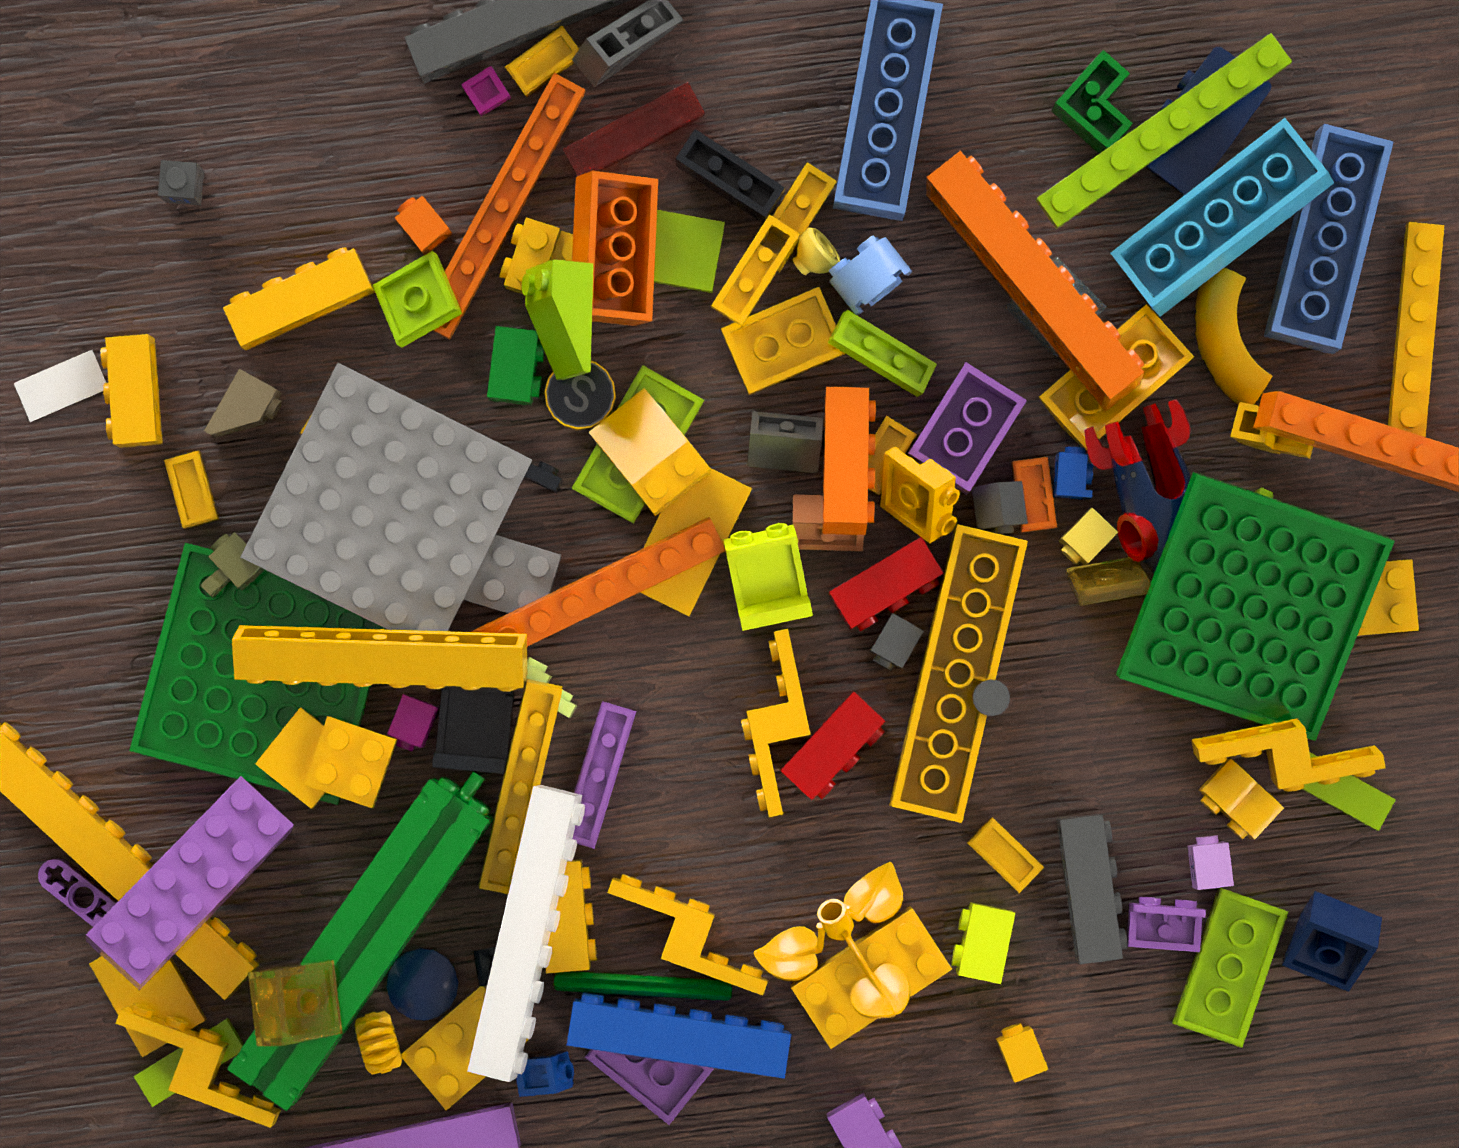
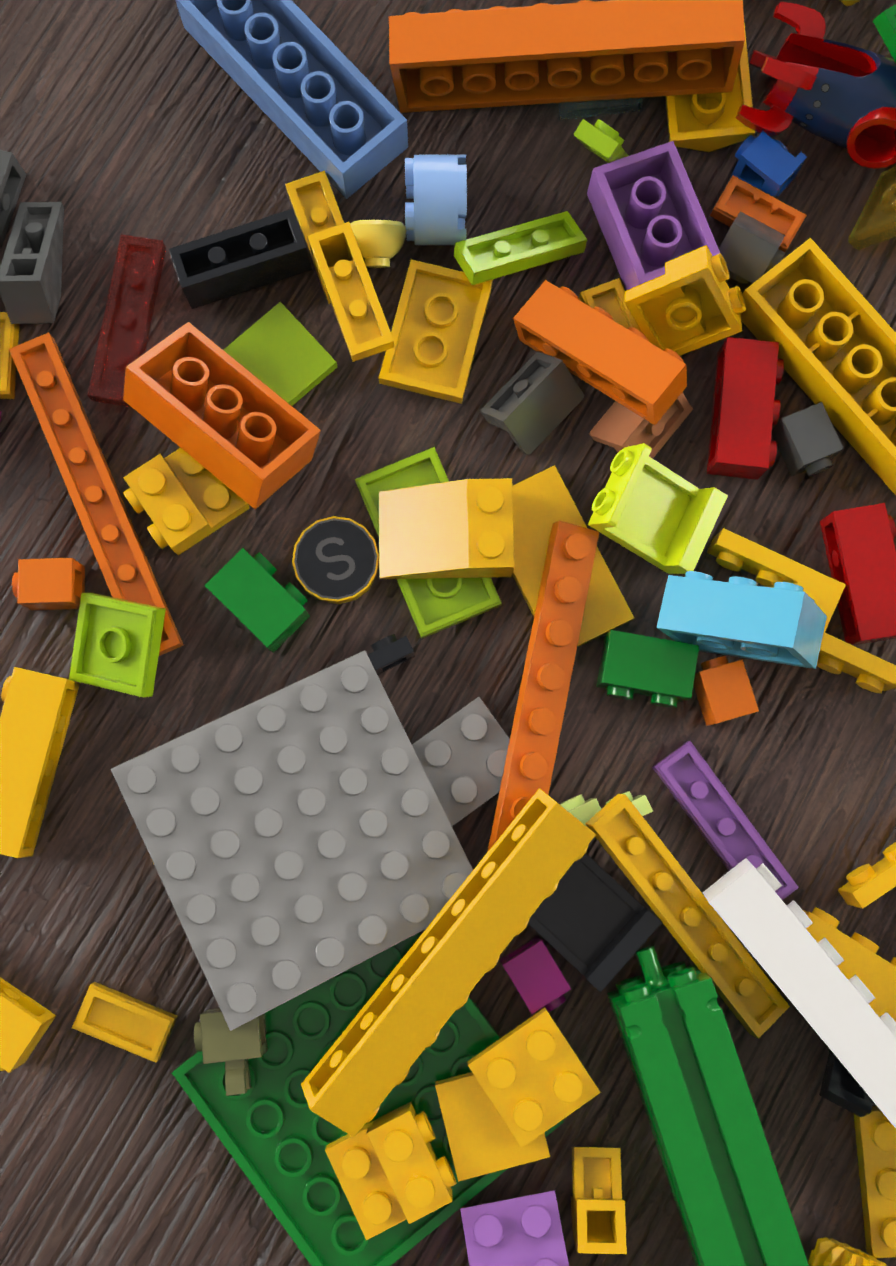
camera: 55 degrees left, 5 degrees down
(230, 719) = (392, 1171): none -> yellow plate
(244, 406) = (82, 902): dark tan slope -> none
(308, 858) = (598, 1201): none -> yellow brick
(422, 984) = (816, 1173): dark blue dish -> none
(561, 310) = (244, 504): lime slope -> none
(661, 648) = (647, 668): none -> green brick
(684, 708) = (724, 690): none -> orange brick
(731, 681) = (743, 618): none -> medium azure brick
(994, 354) = (601, 140): none -> lime plate
(1087, 537) = (836, 195): light yellow brick -> none

